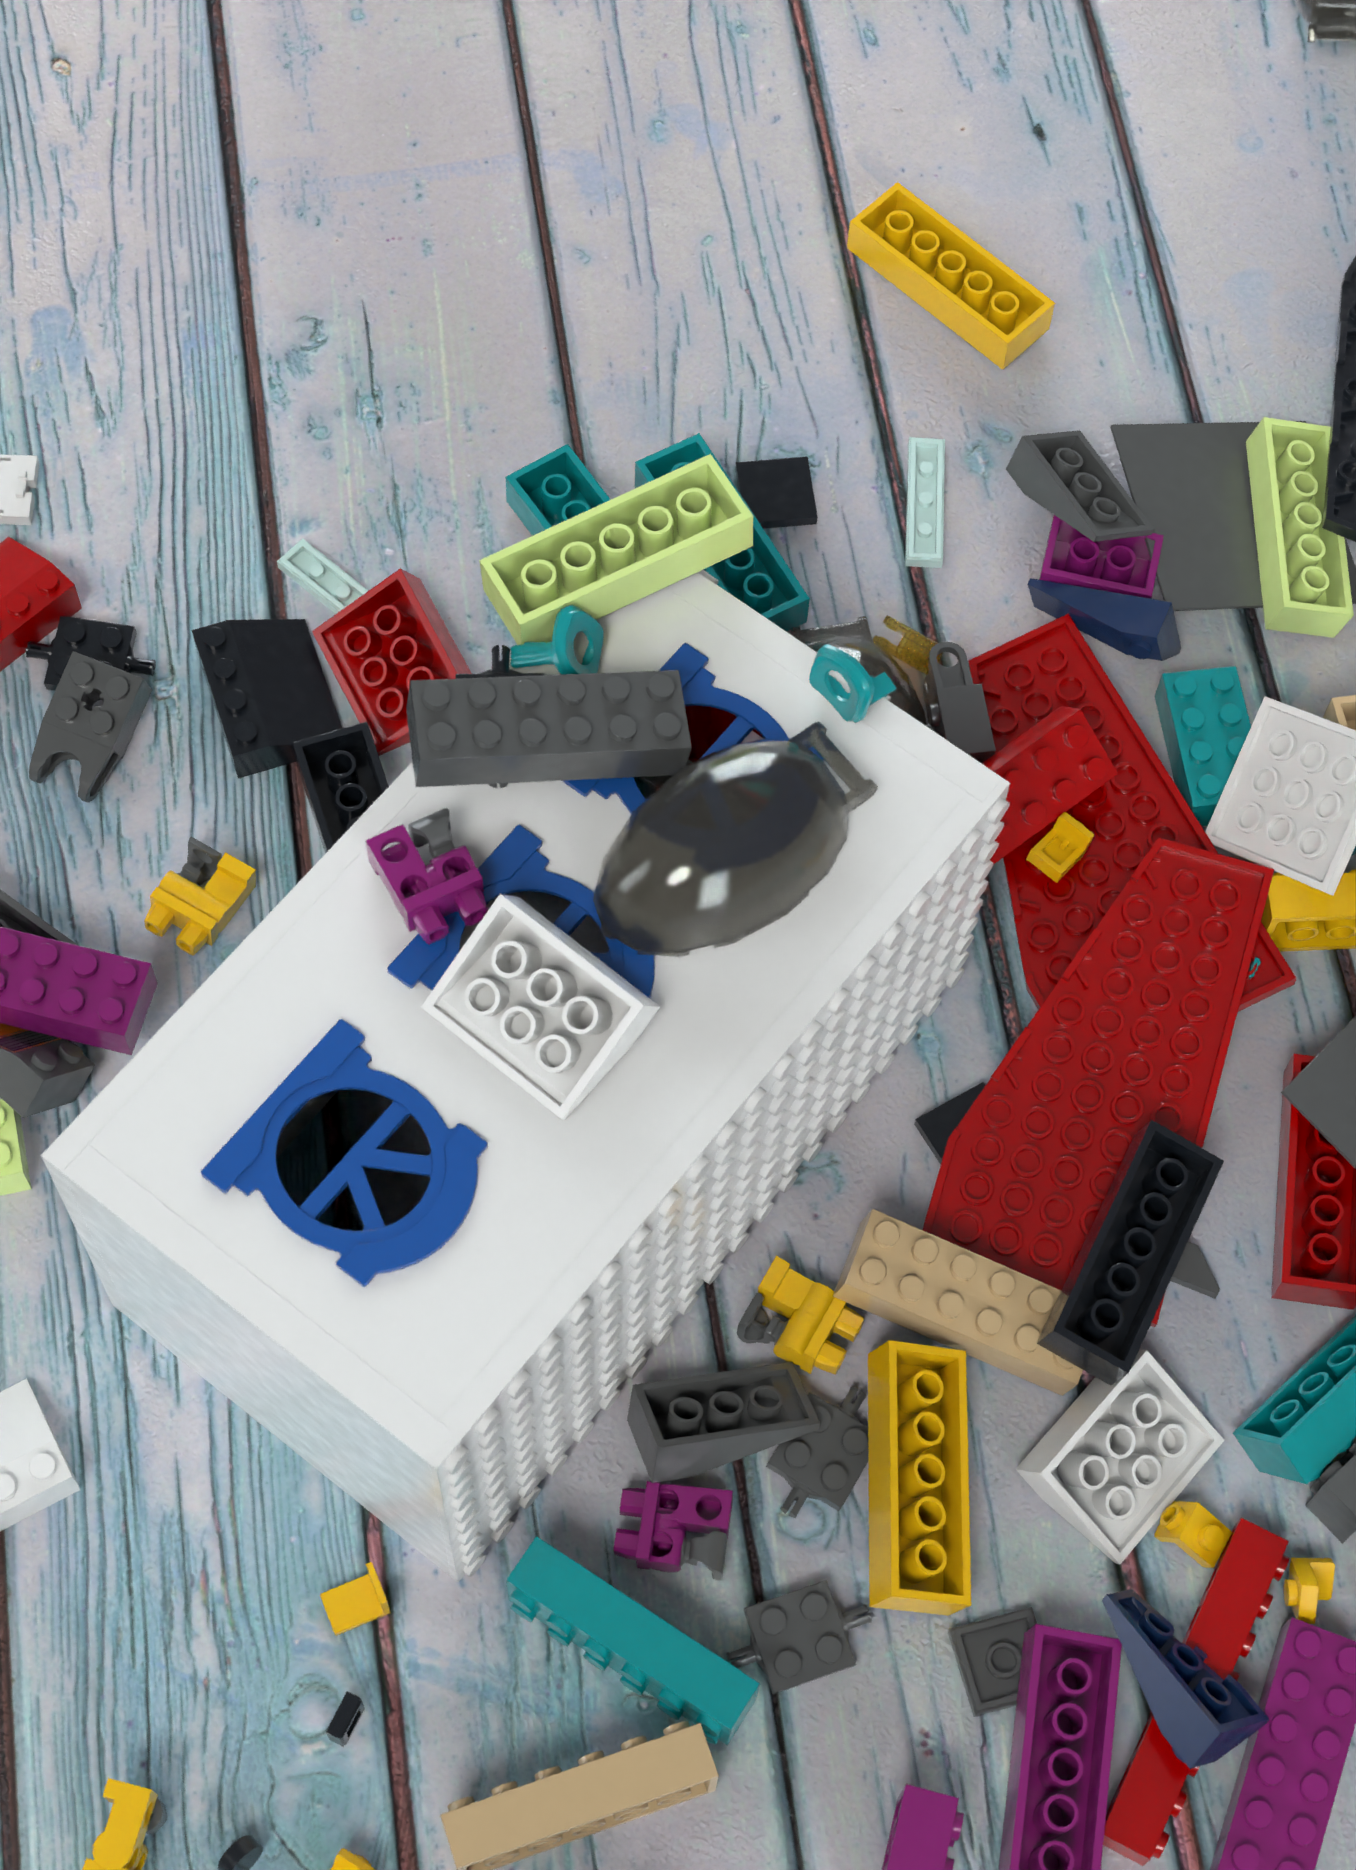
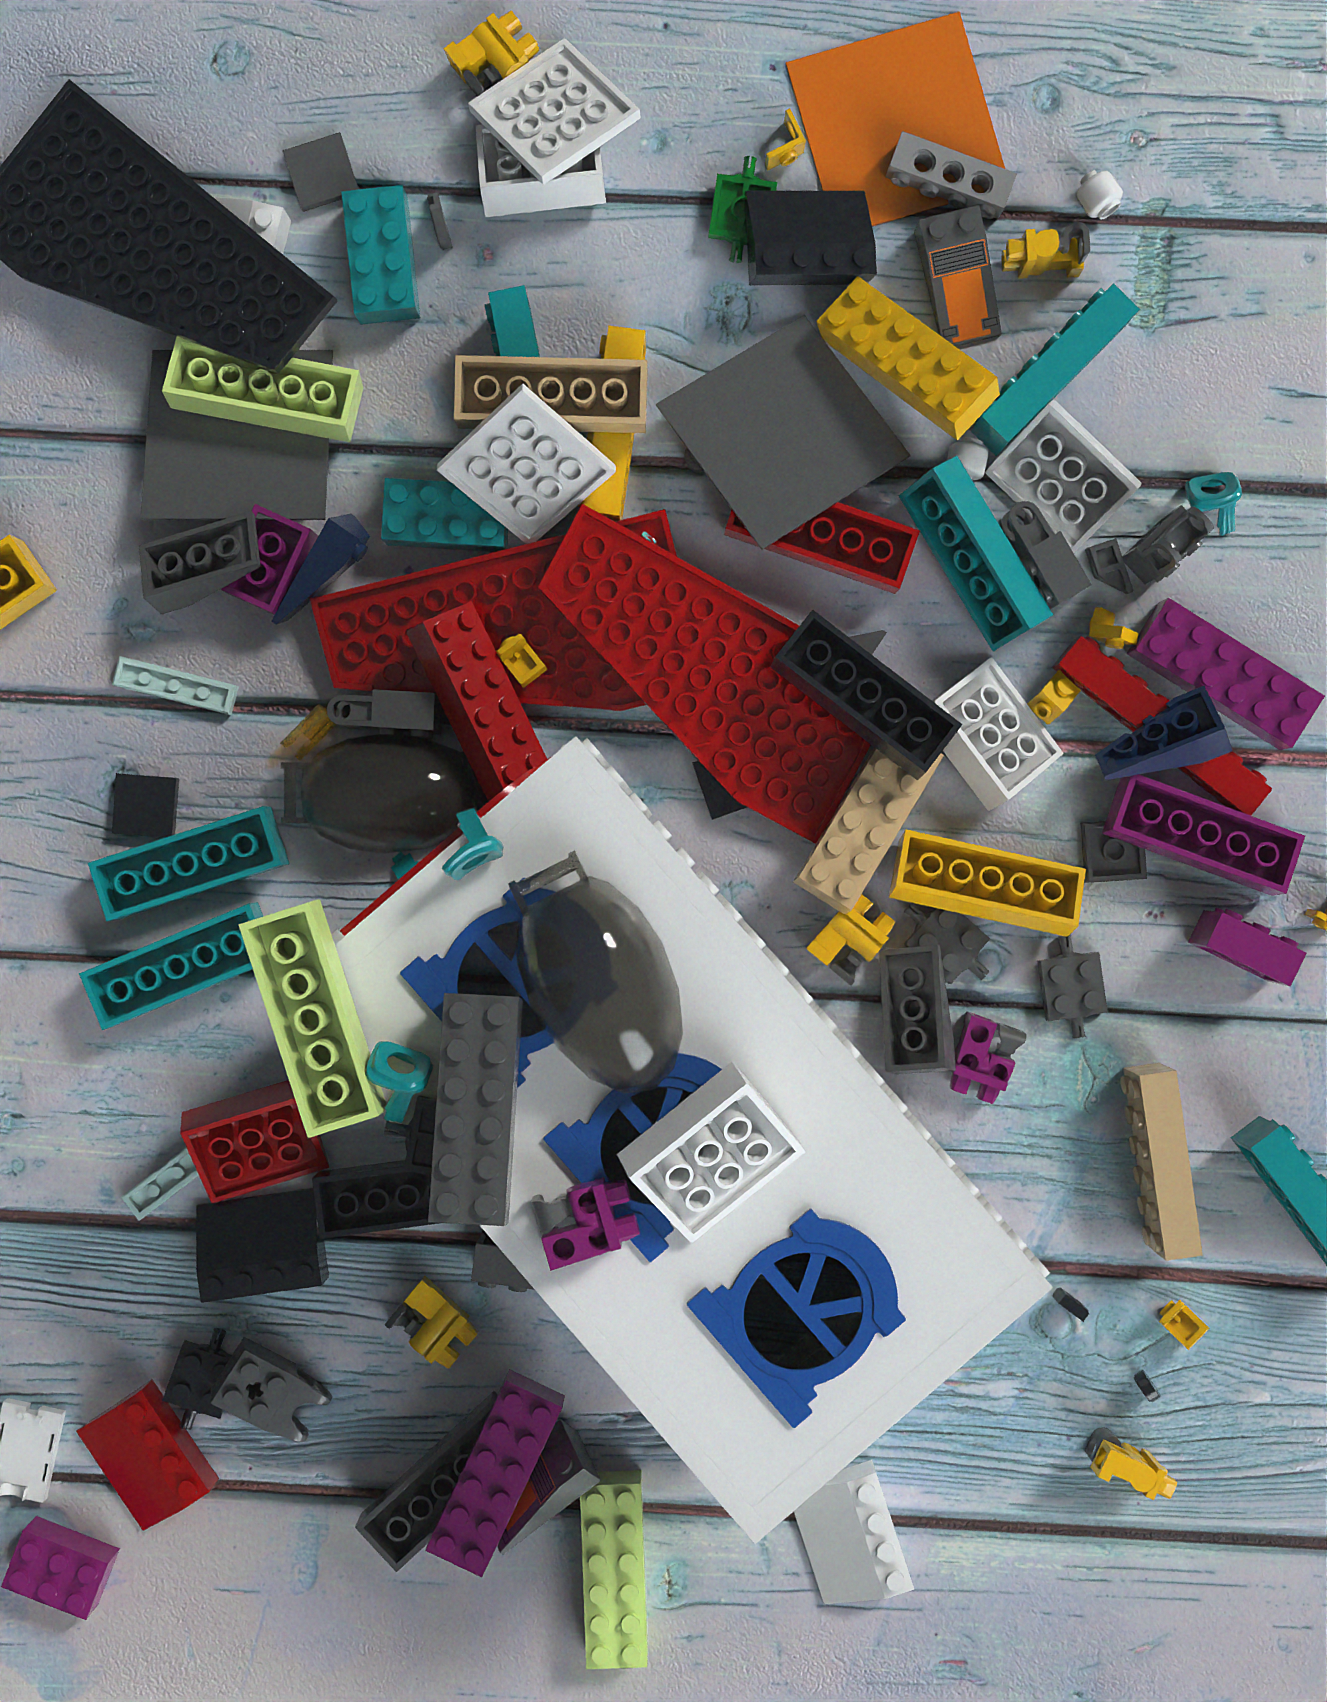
camera: 80 degrees left, 25 degrees up
(630, 1641) = (1064, 1105): teal brick -> none

